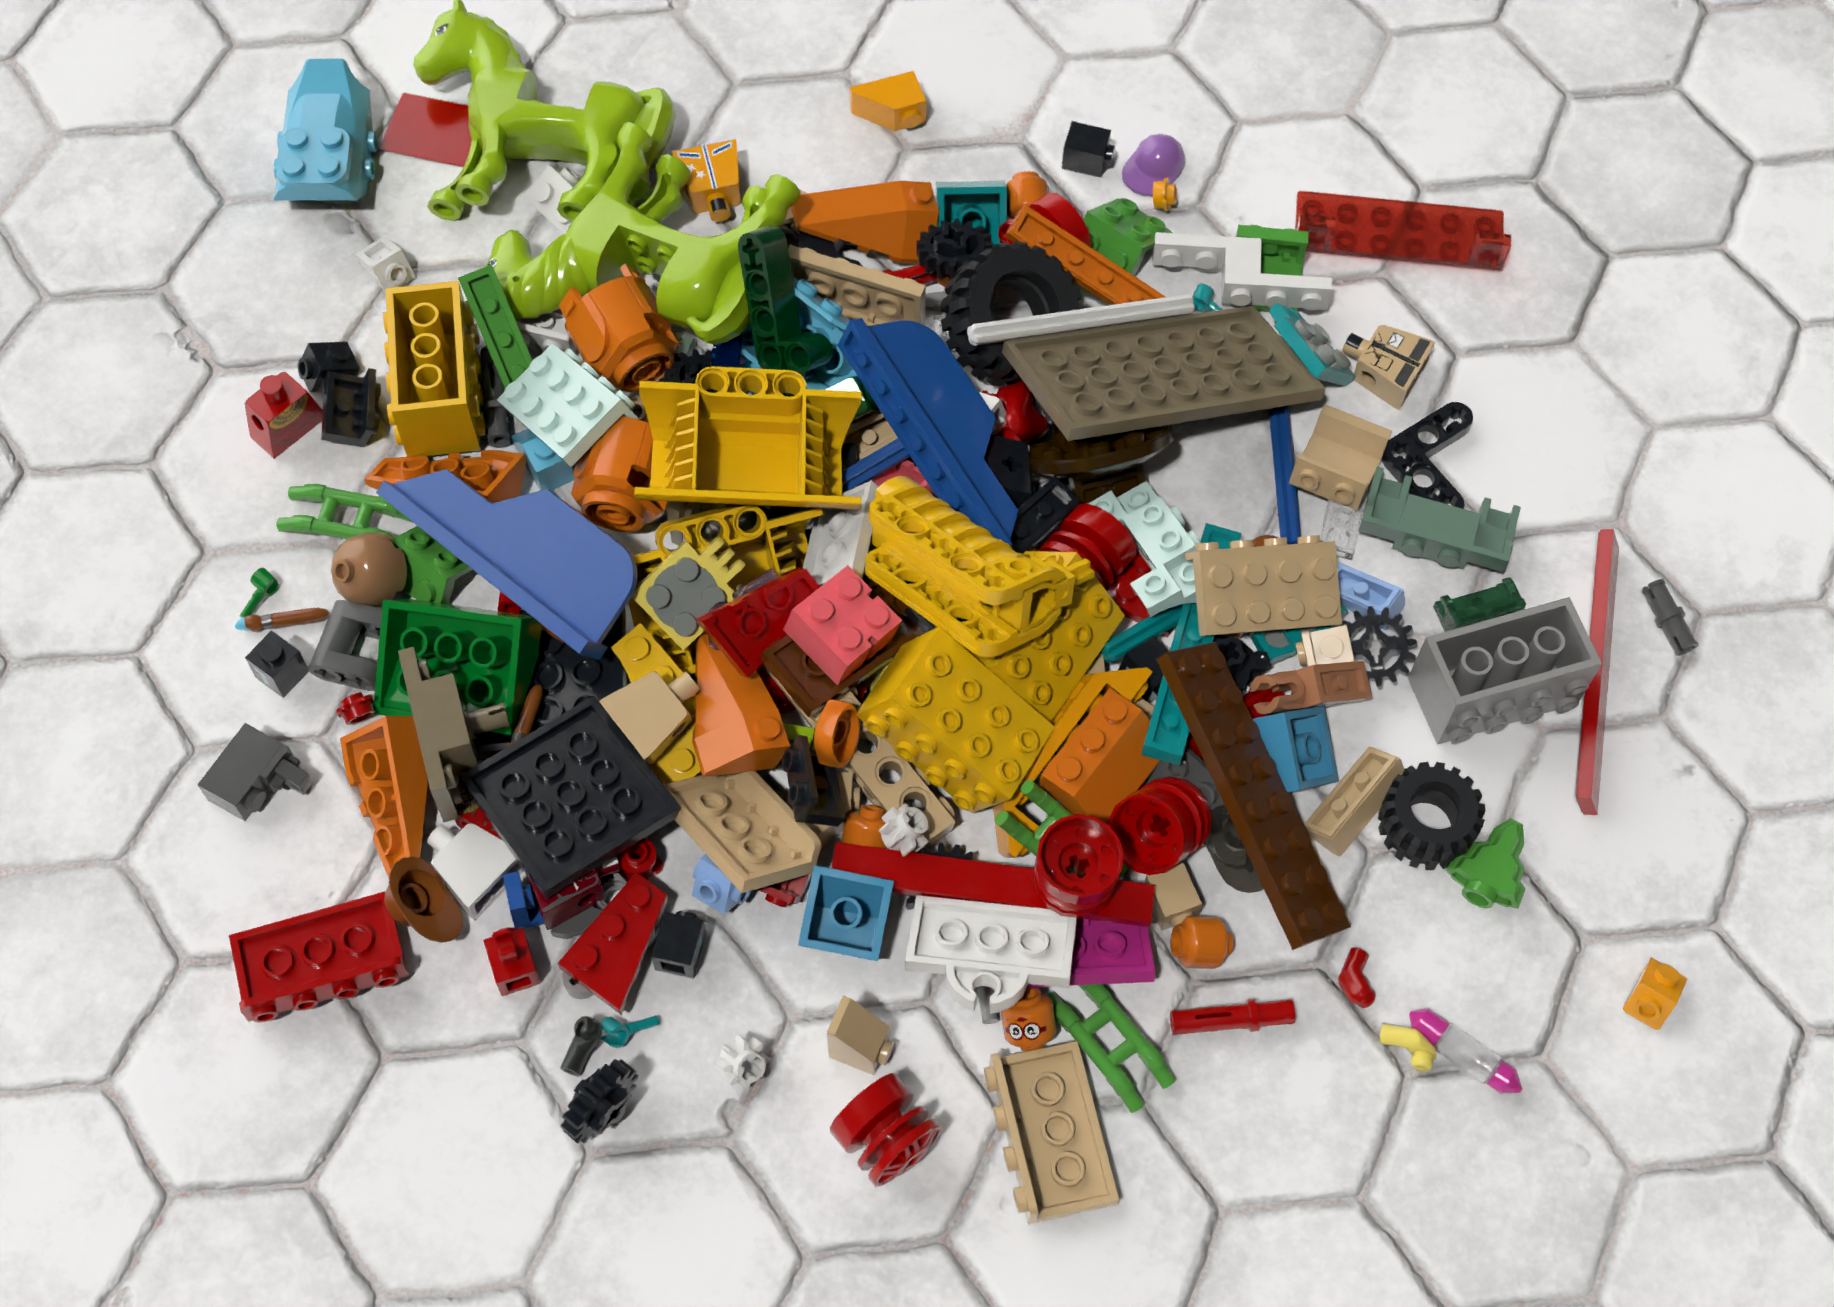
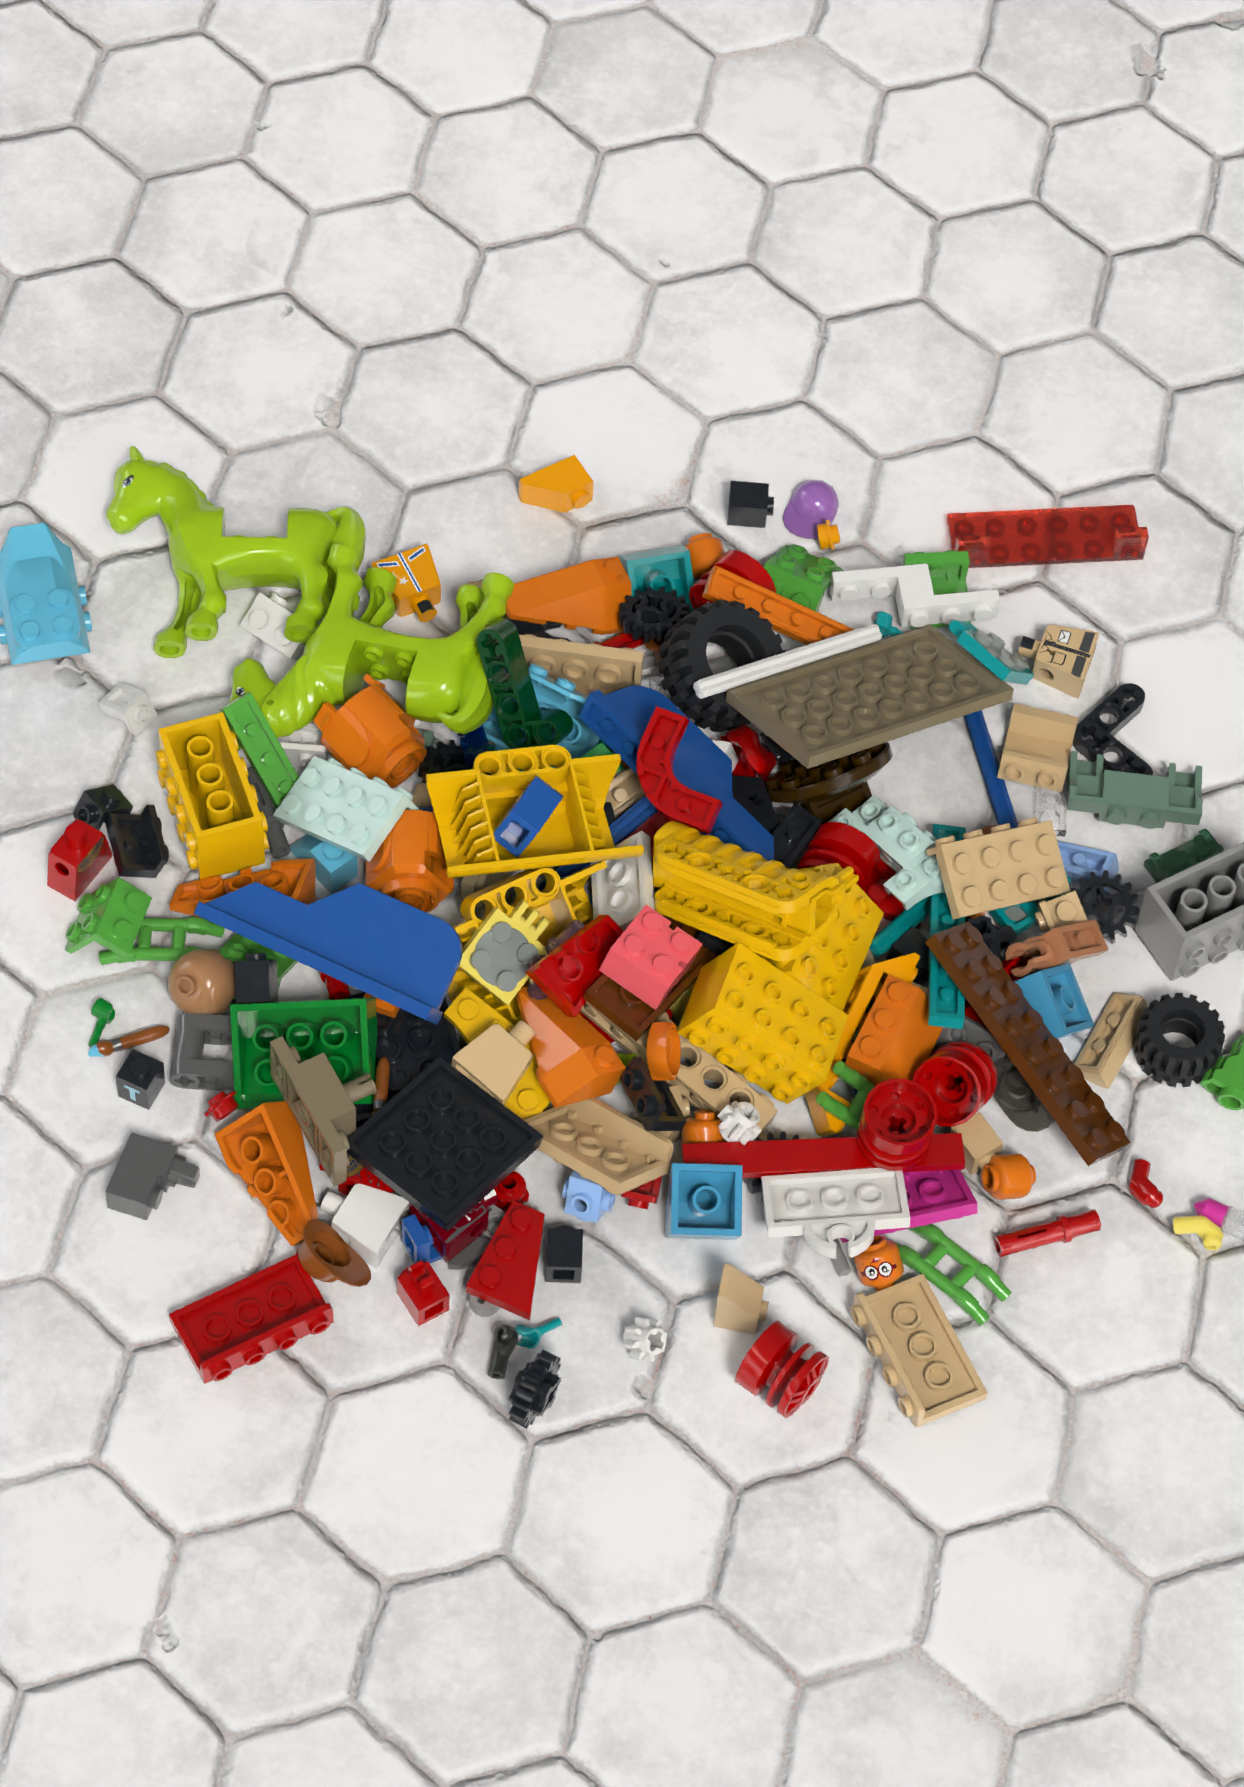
camera: 15 degrees left, 5 degrees down
(295, 484) = (109, 917): none -> bright green bracket
(420, 576) = (256, 979): none -> black brick
(429, 130) = (132, 576): sticker -> none
(742, 445) = (526, 816): none -> blue slope
(899, 423) = (657, 775): none -> red plate

